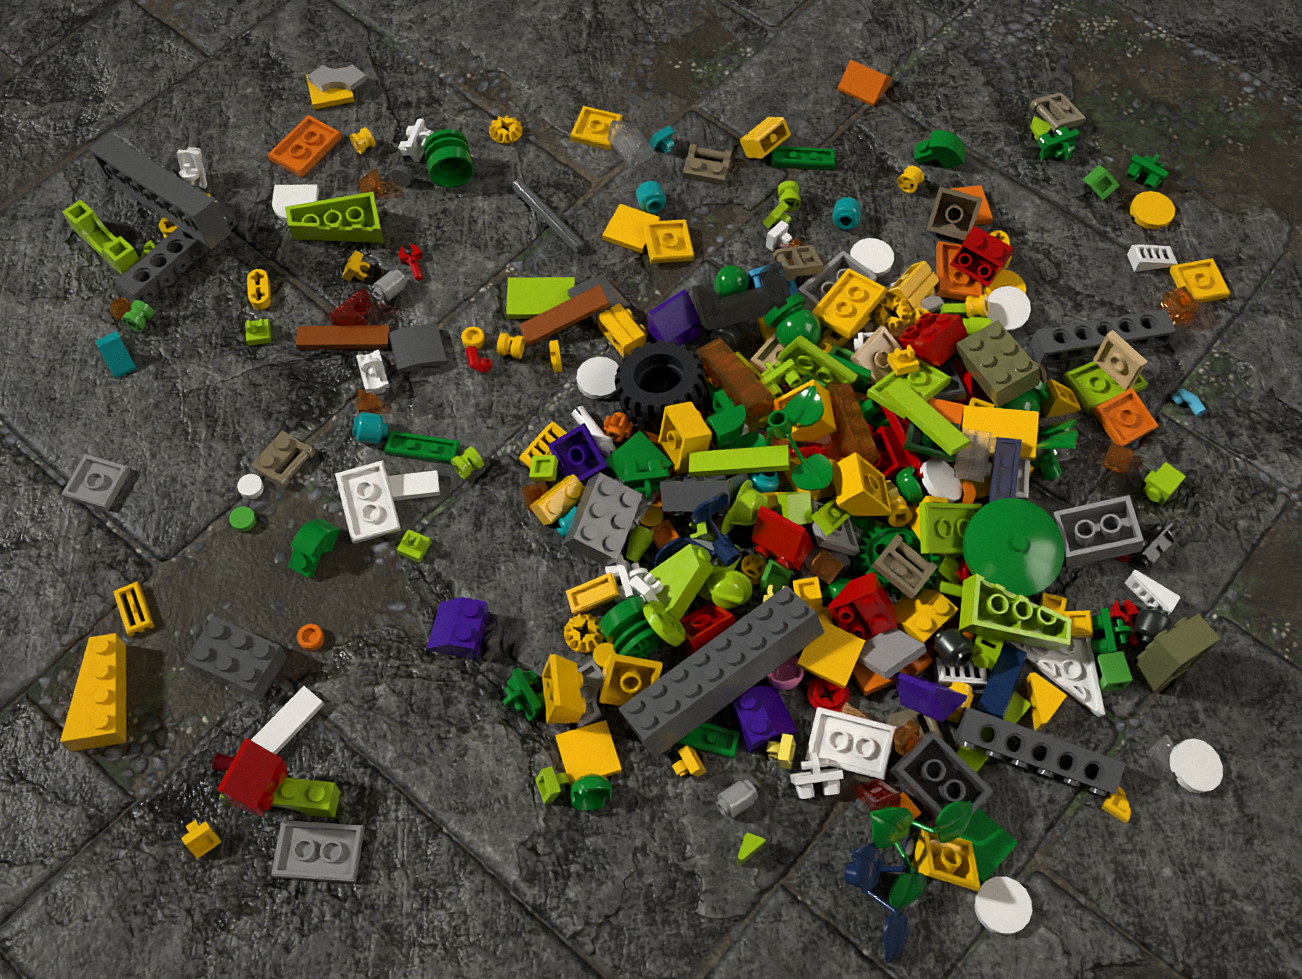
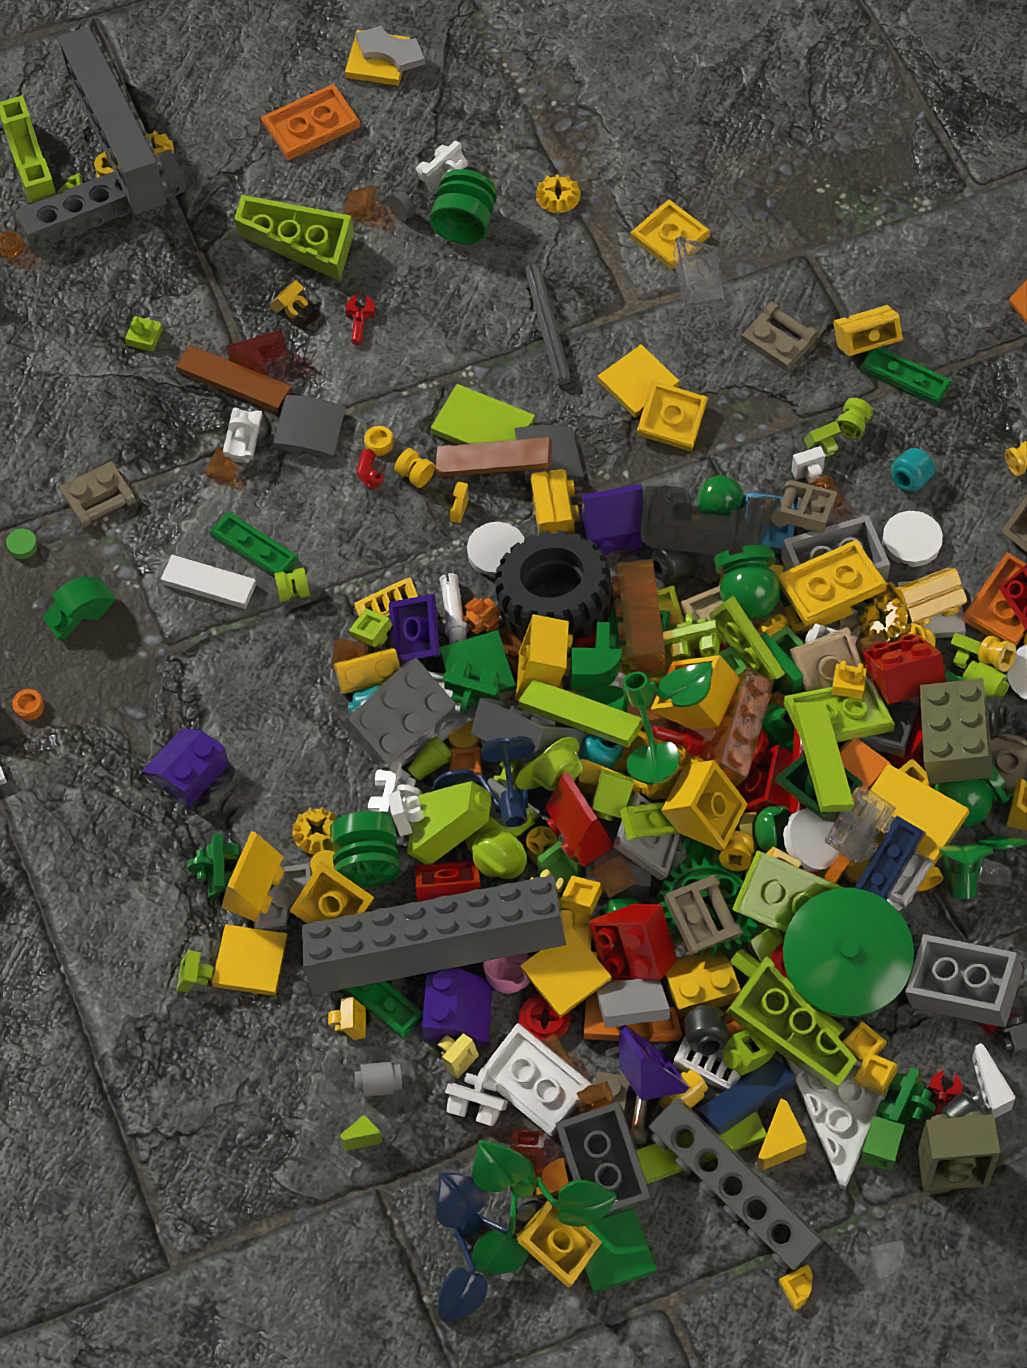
camera: 30 degrees right, 0 degrees up
(137, 316) = (22, 260): bright green wheel -> none
(192, 167) = (164, 102): white hips -> none
(250, 486) = (47, 510): white tile -> none
(263, 288) = (165, 280): yellow beam -> none
(292, 195) = (265, 183): white tile -> none
(362, 140) = (379, 142): yellow wheel -> none
(368, 502) = (161, 582): white tile -> none
(369, 428) = (206, 498): teal head -> none
(389, 285) = (315, 338): light grey brick -> none
(413, 546) = (186, 653): lime tile -> none
(590, 792) = (226, 999): green hair -> none
(593, 593) = (349, 792): yellow tile -> none
(650, 197) = (681, 351): teal head -> none
(663, 140) = (740, 283): teal tile -> none
(664, 624) = (396, 855): lime tile -> none
(1003, 905) = (600, 1325): white tile -> none
(1196, 766) = (913, 1288): white tile -> none

